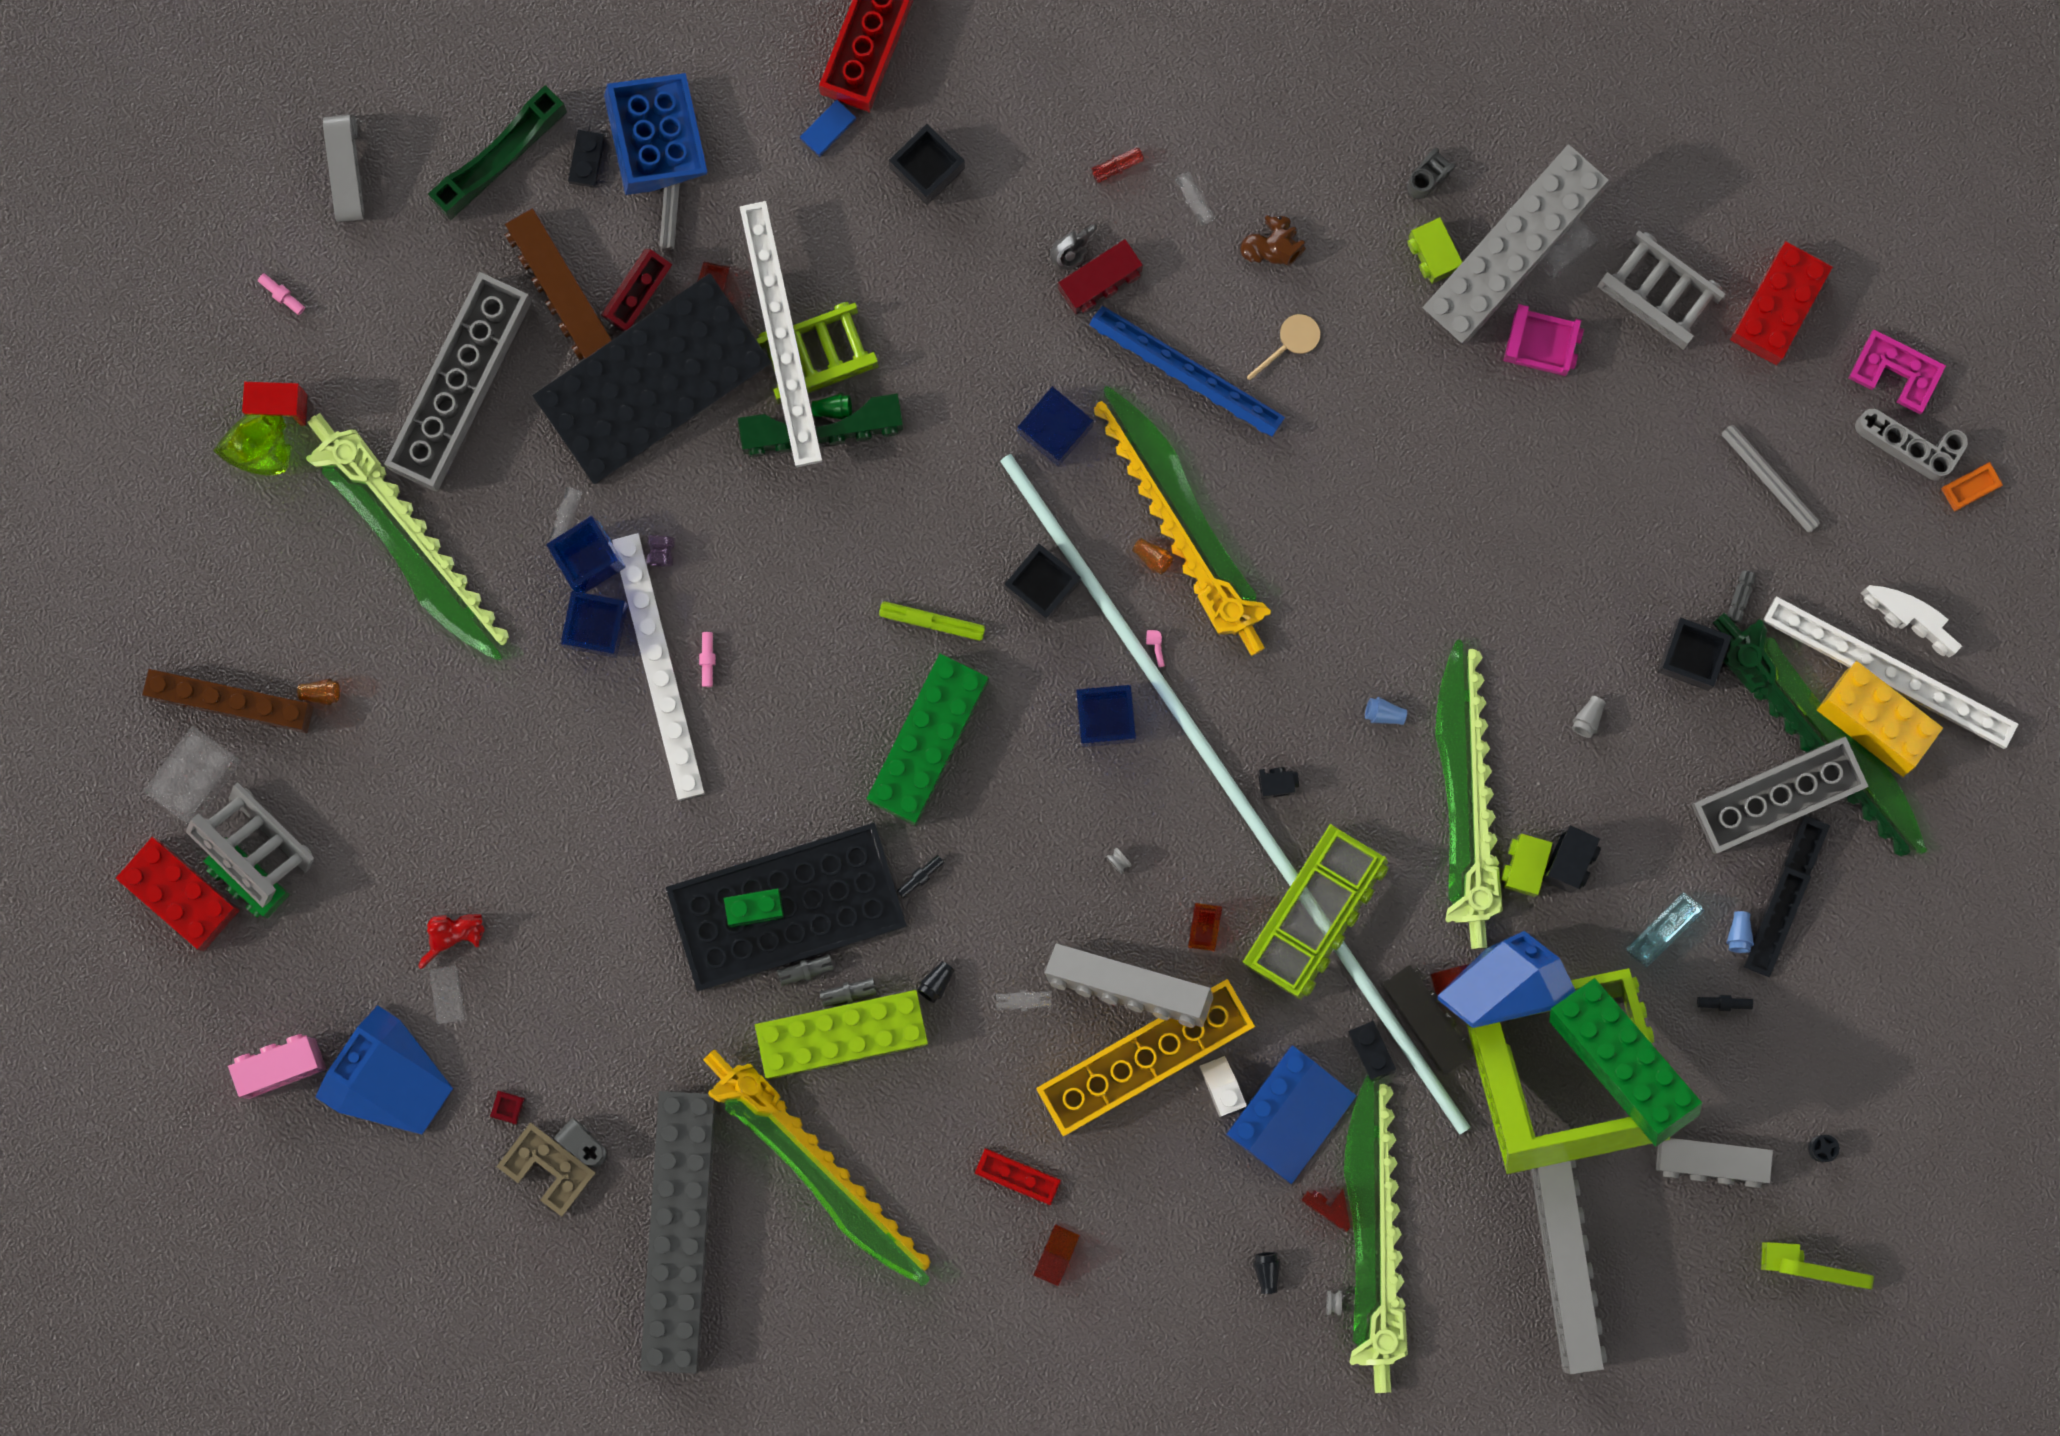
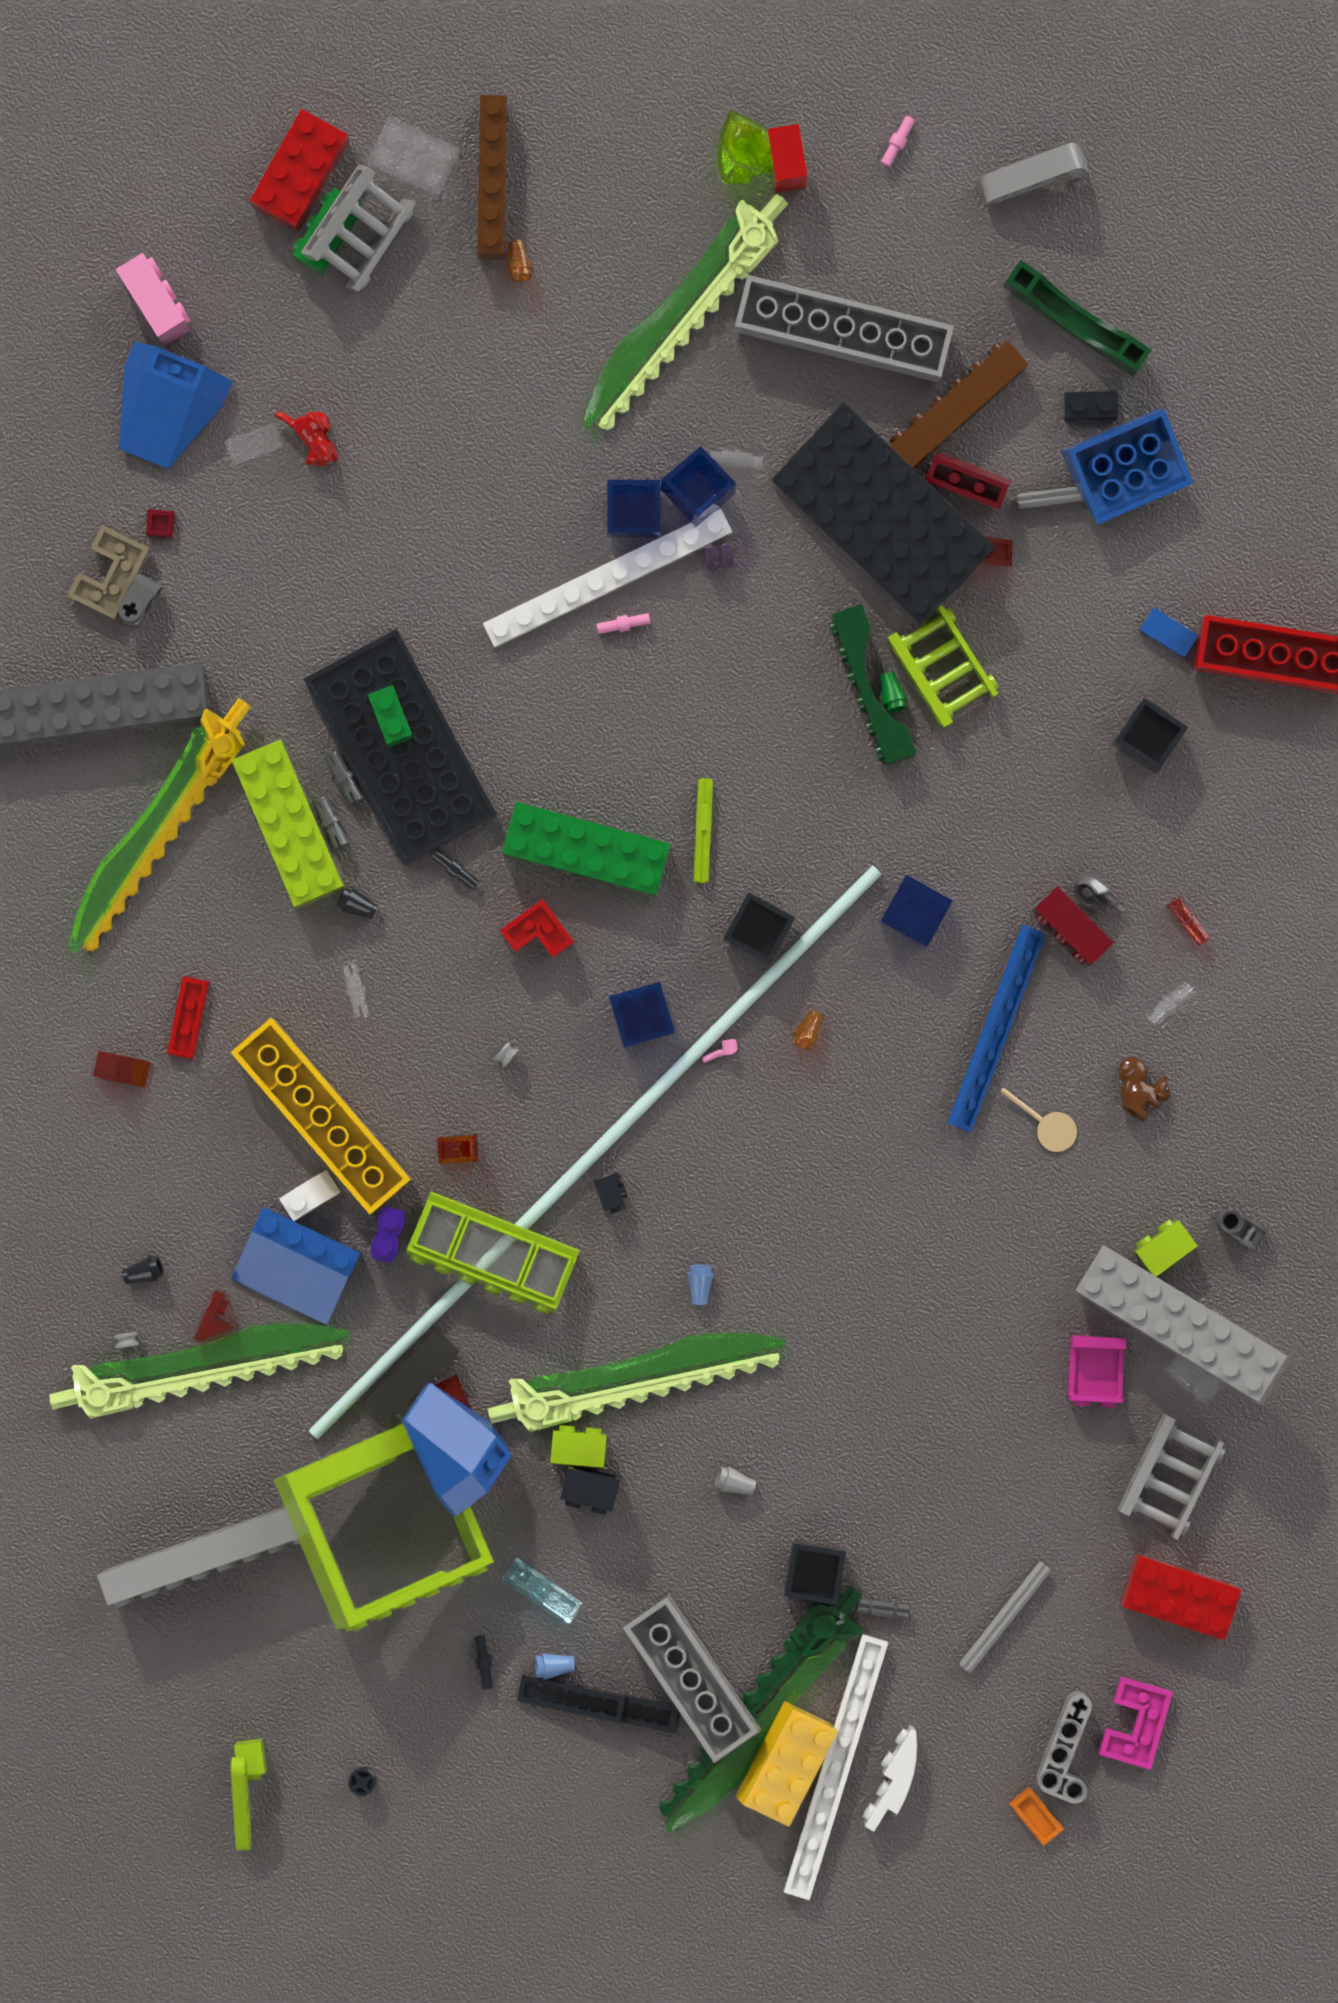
camera: 80 degrees right, 5 degrees up
(780, 334) = (951, 627): white plate -> none
(992, 803) = (539, 923): none -> red panel
(1129, 985) = (385, 1087): light grey brick -> none
(1219, 599) = (780, 1100): piece -> none
(1284, 1017) = (387, 1242): none -> dark purple brick
(1372, 1051) = (371, 1331): black plate -> none
(1625, 1062) = (396, 1572): green brick -> none
(1714, 1160) = (329, 1679): light grey brick -> none

